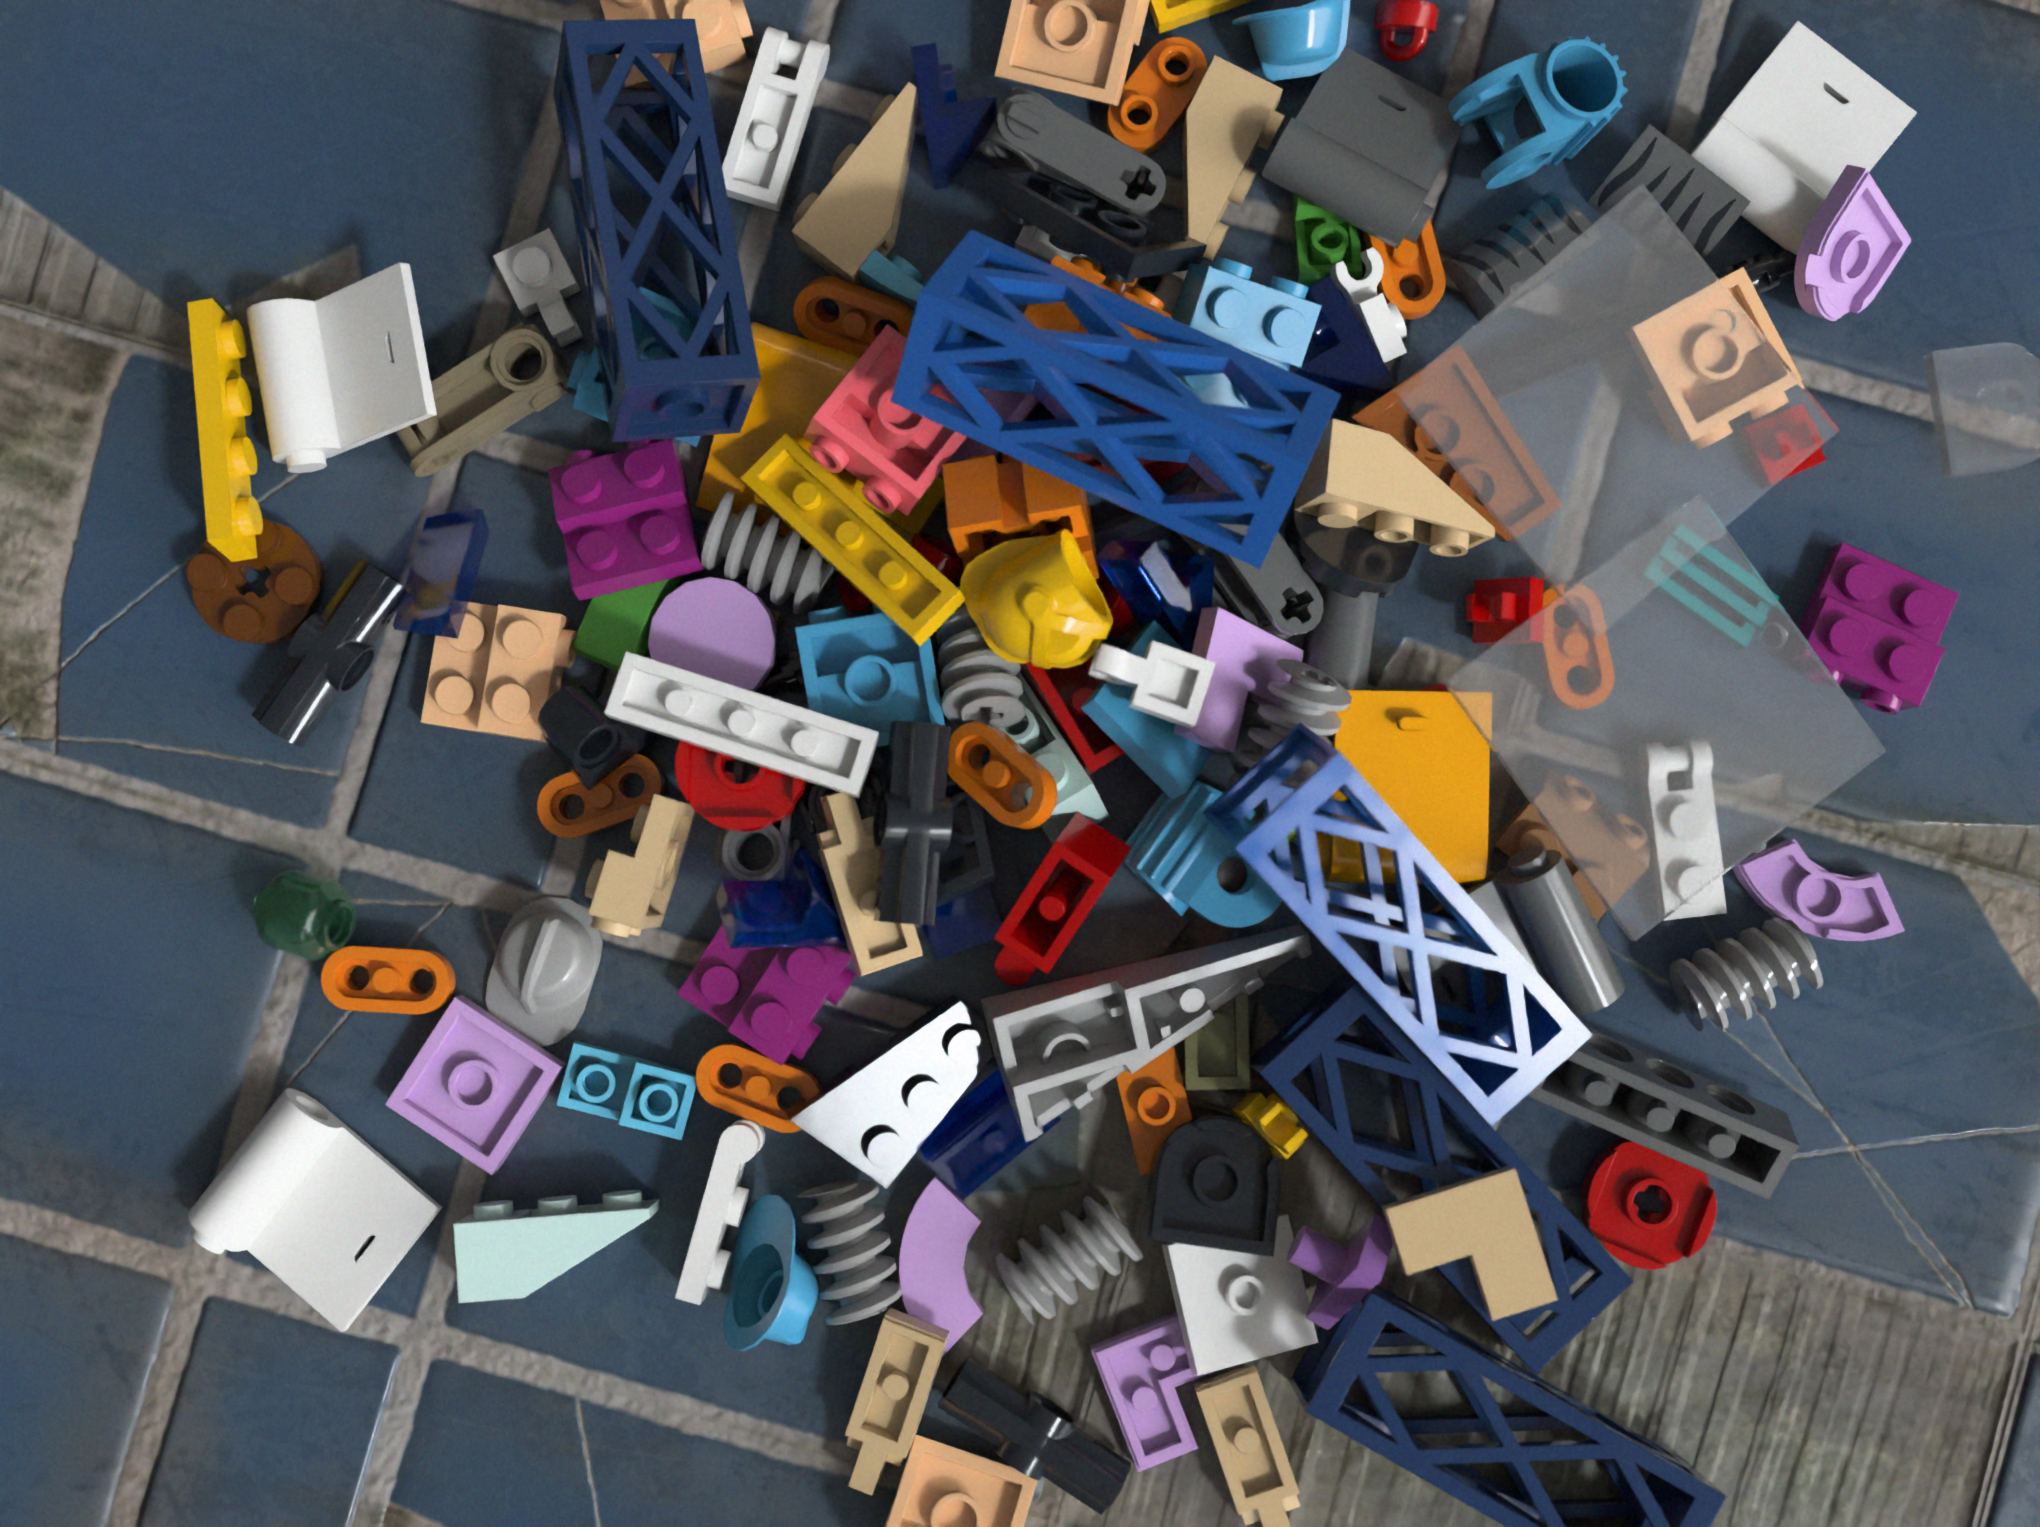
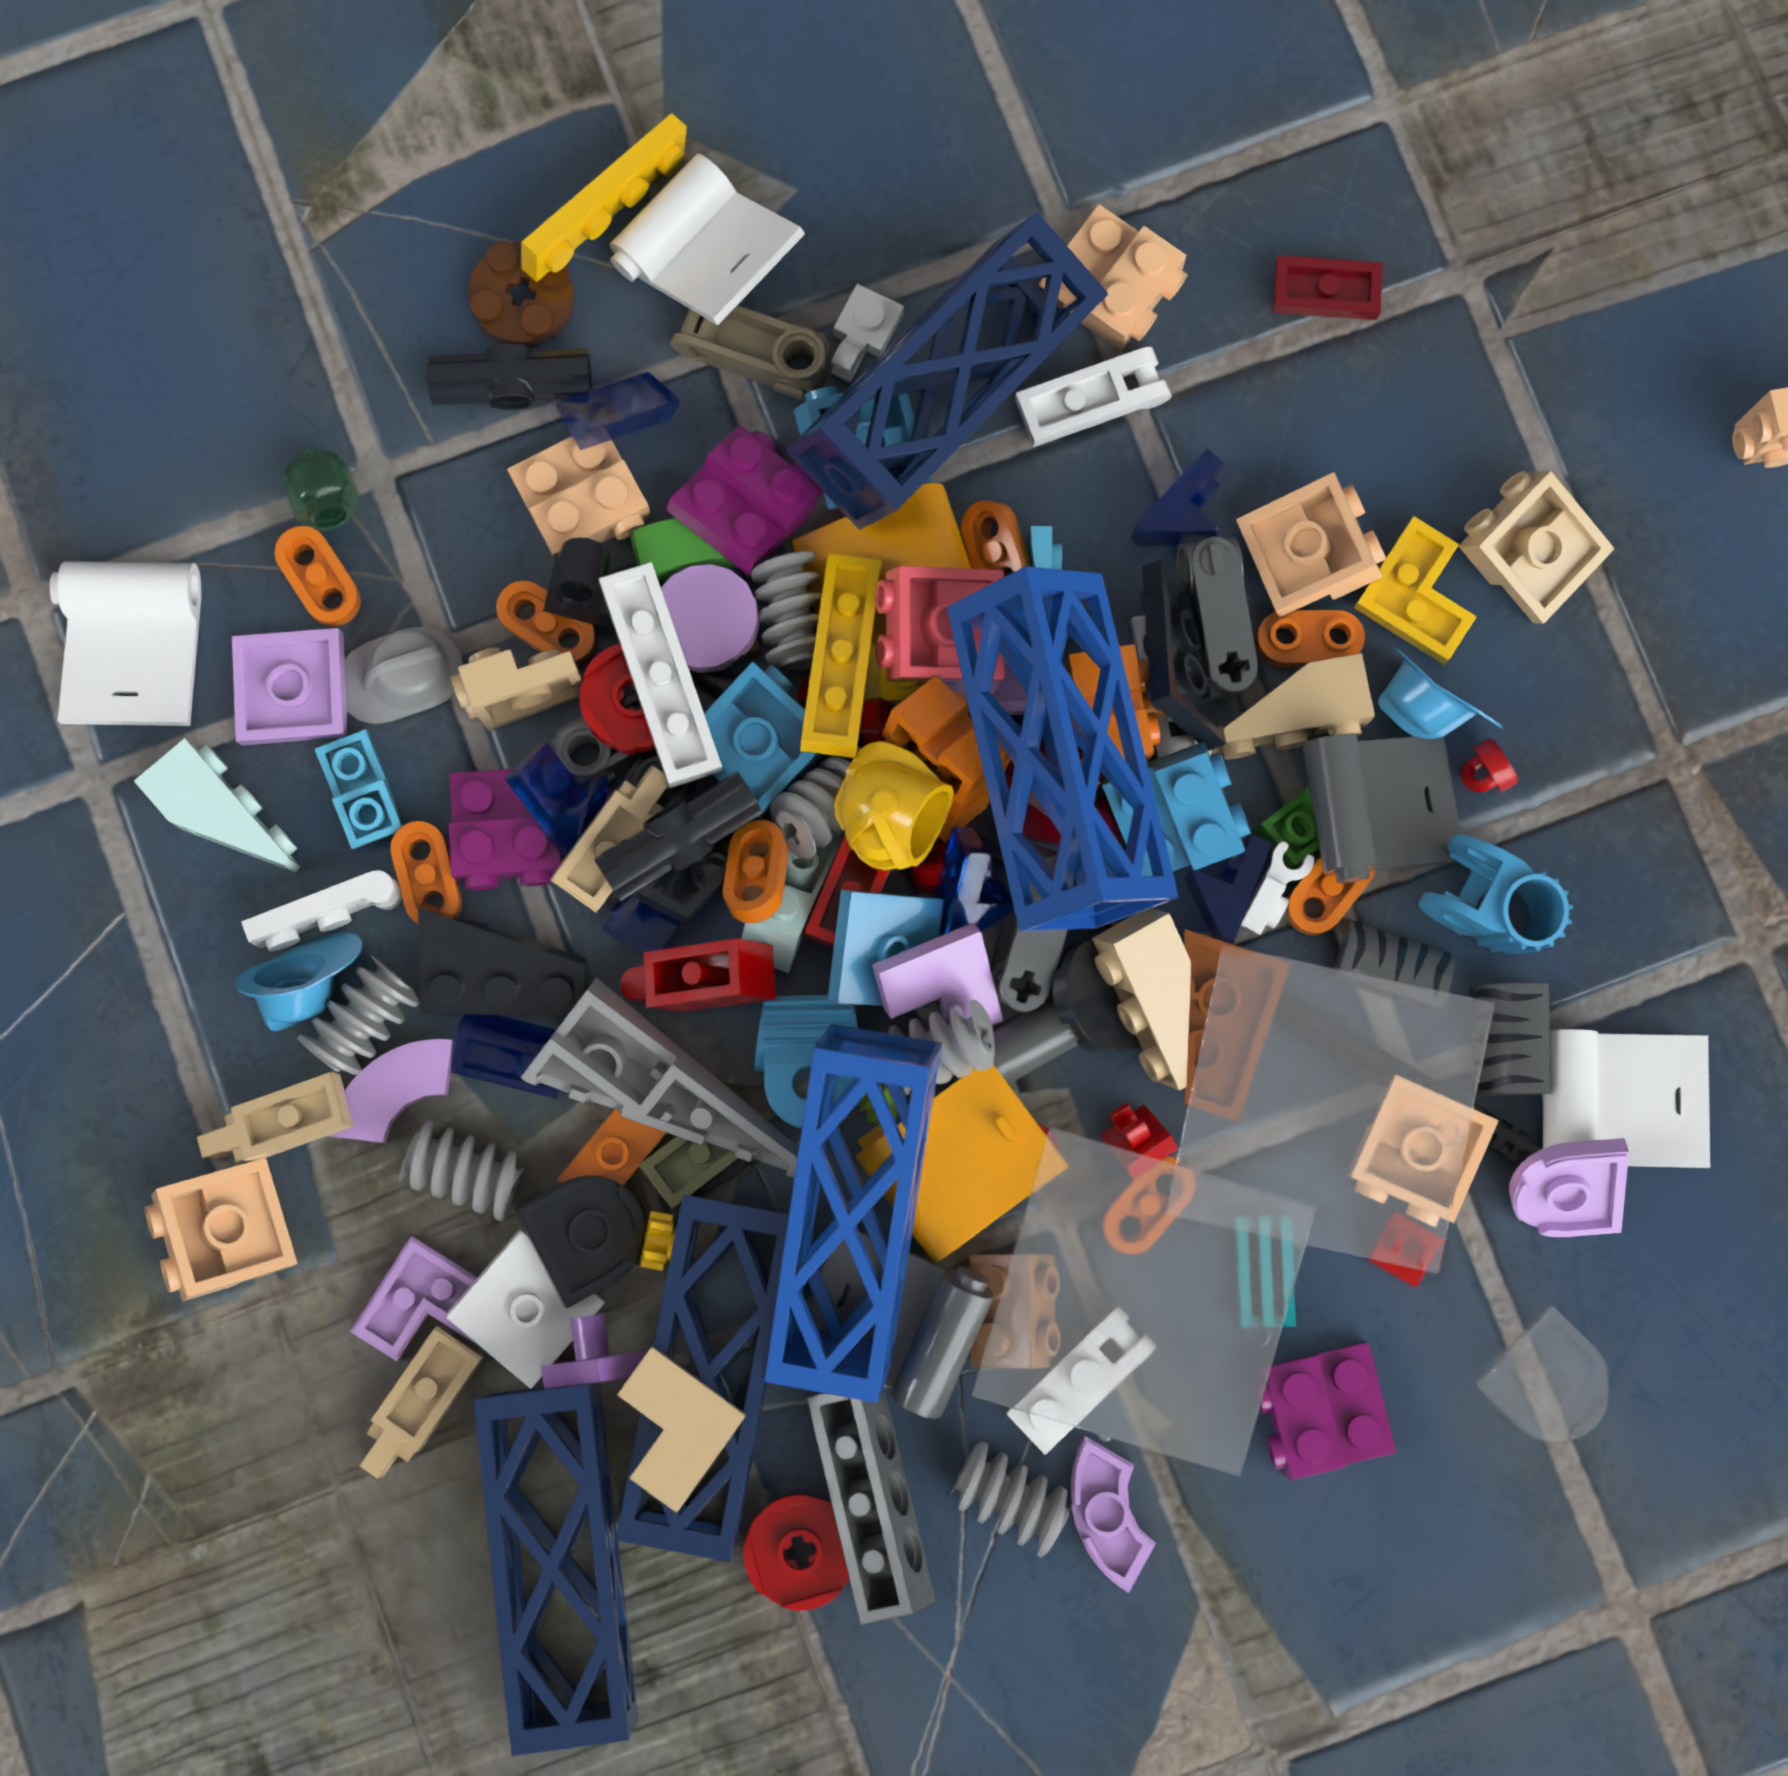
camera: 50 degrees right, 5 degrees down
(865, 196) = (1087, 494): tan slope -> none
(1035, 1435) = (324, 1239): black piece -> none
(1164, 681) = (899, 930): white plate -> none

